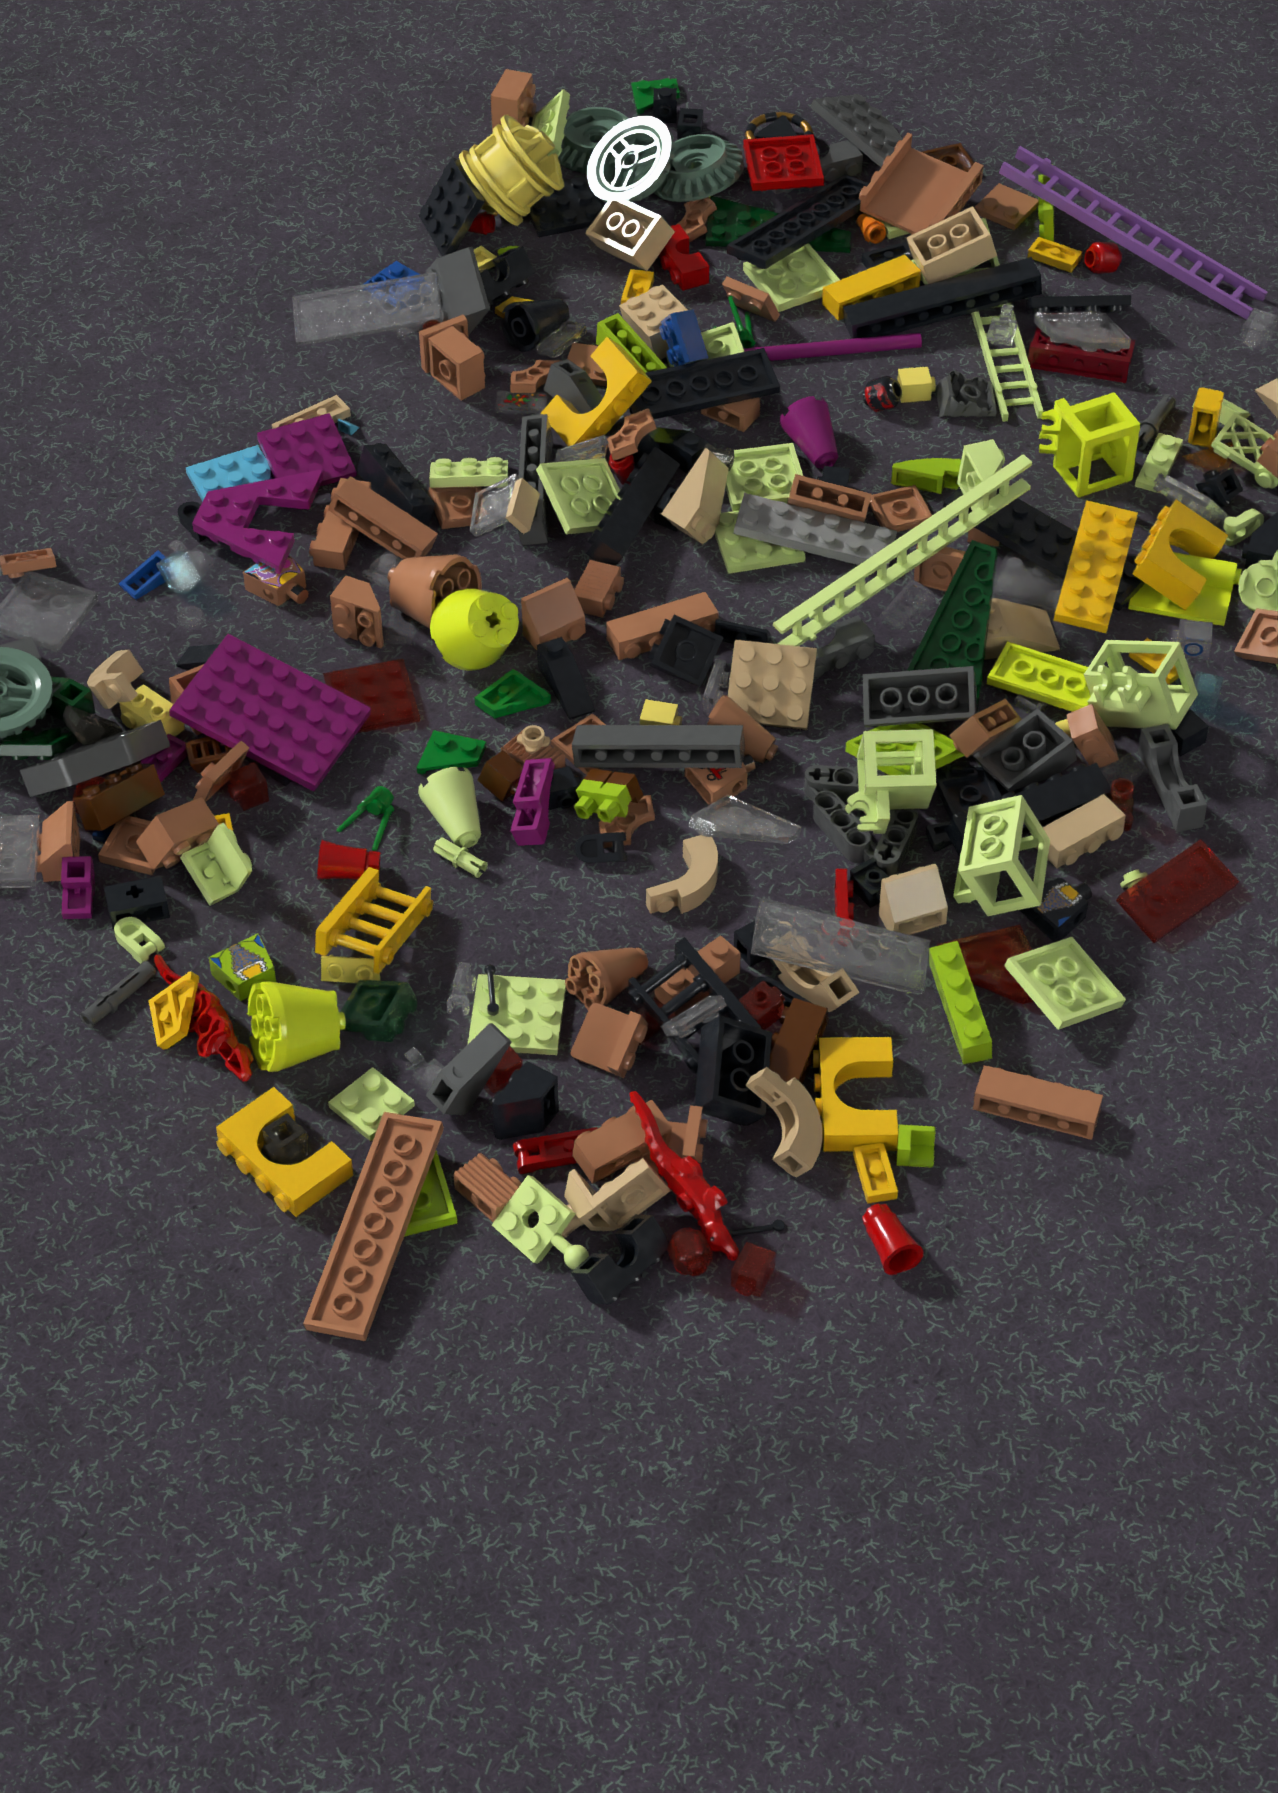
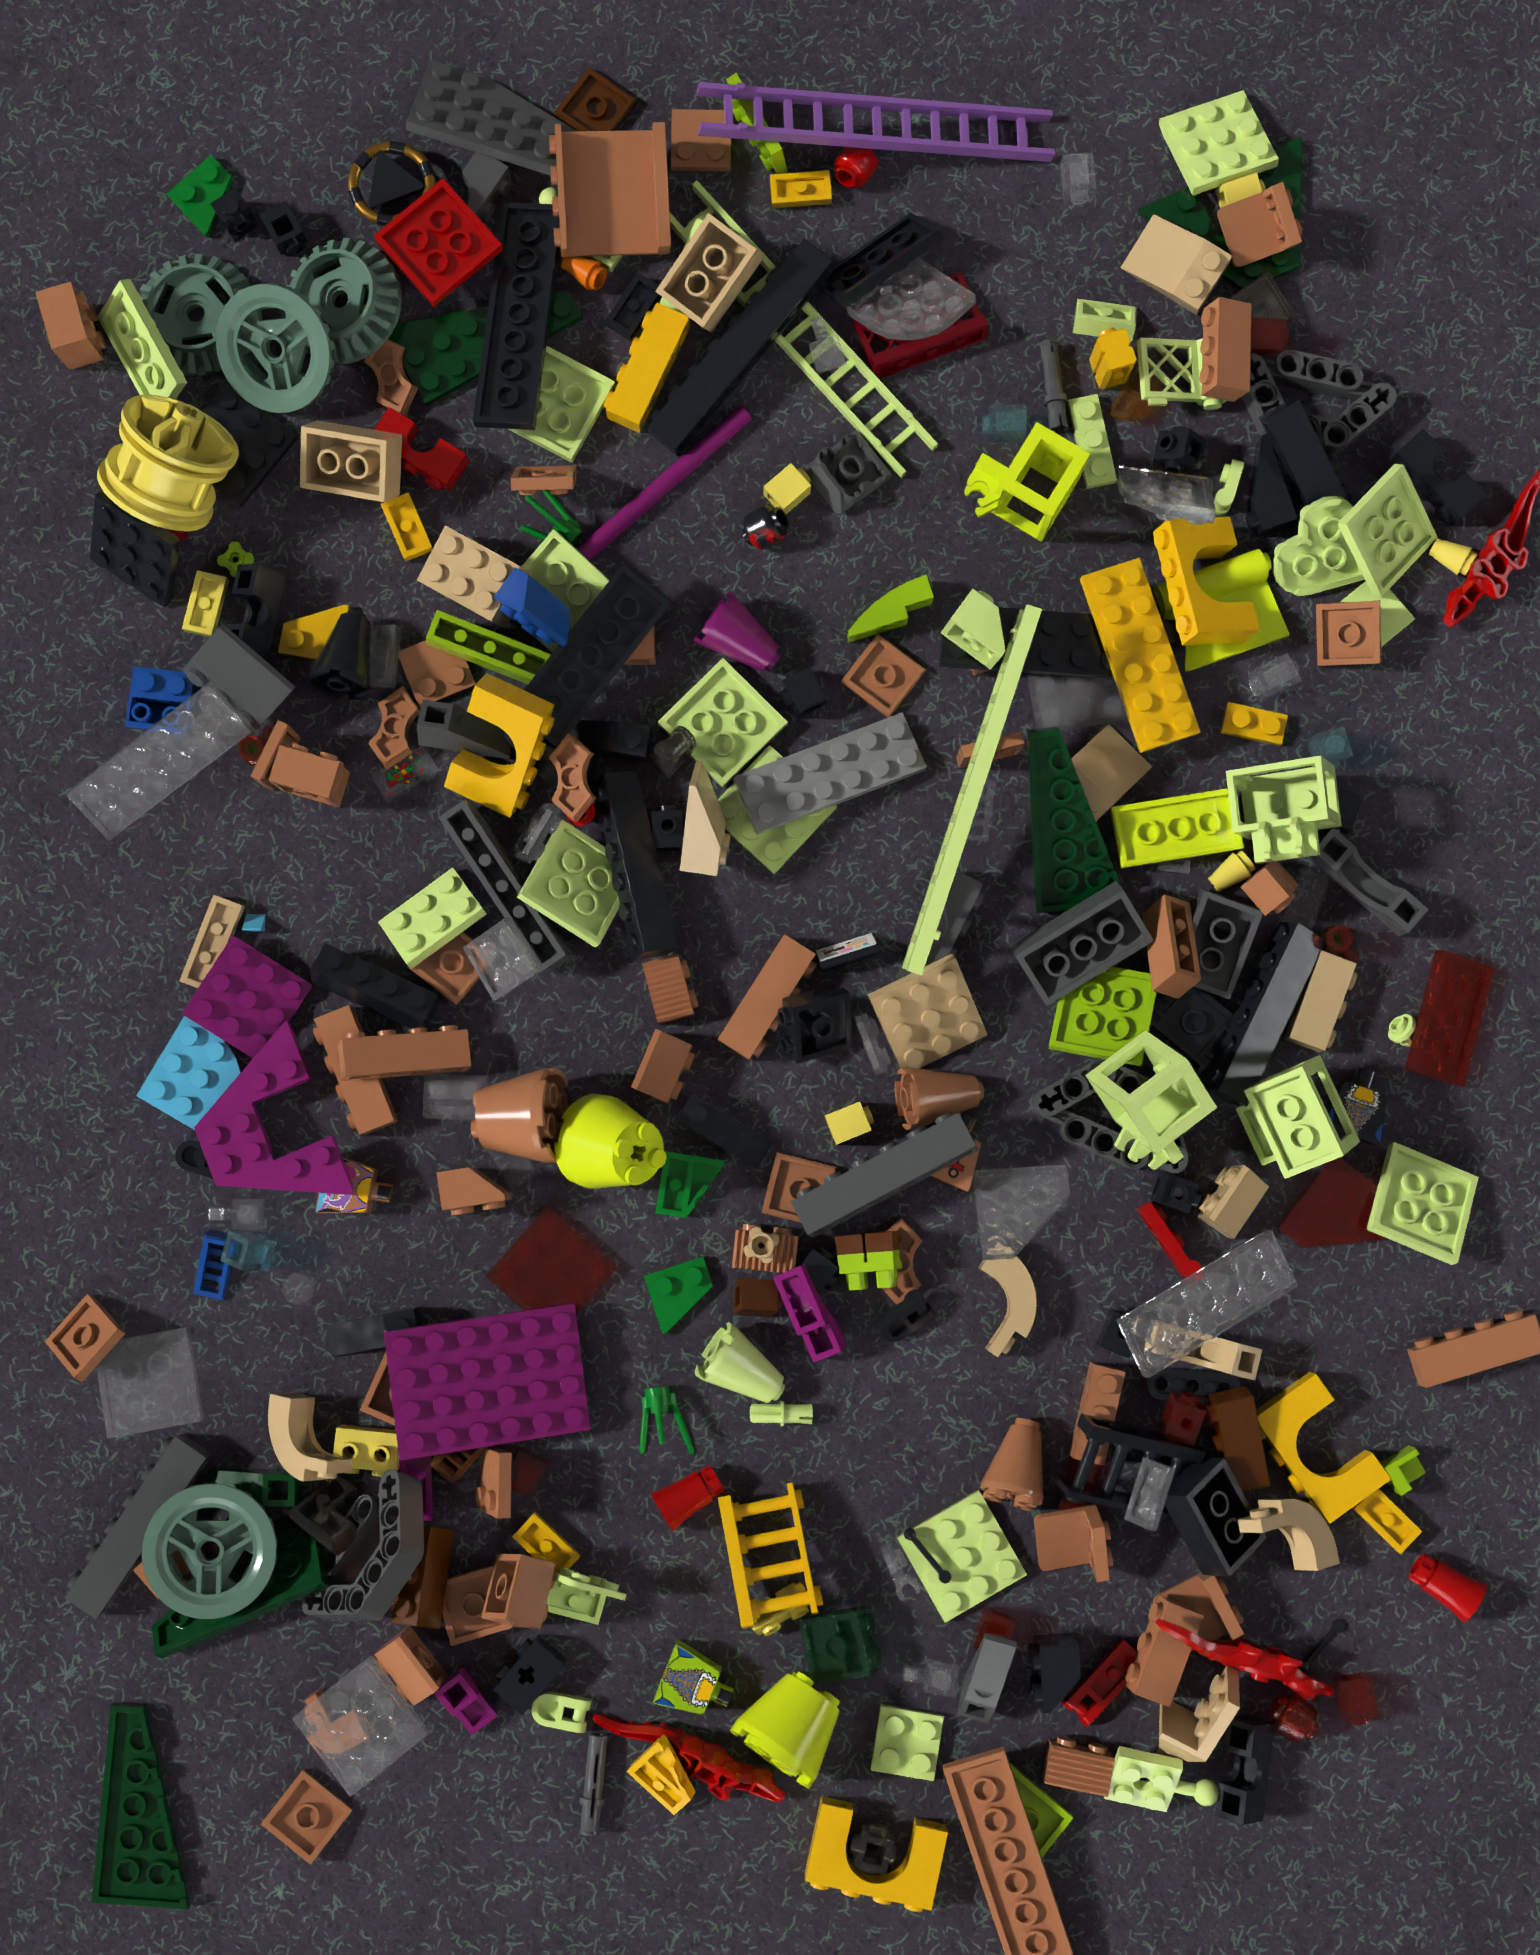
camera: 35 degrees left, 35 degrees up
(522, 506) = (540, 957): tan tile -> none
(829, 498) = (819, 727): nougat brick -> none
(960, 1003) = (1349, 1291): lime brick -> none

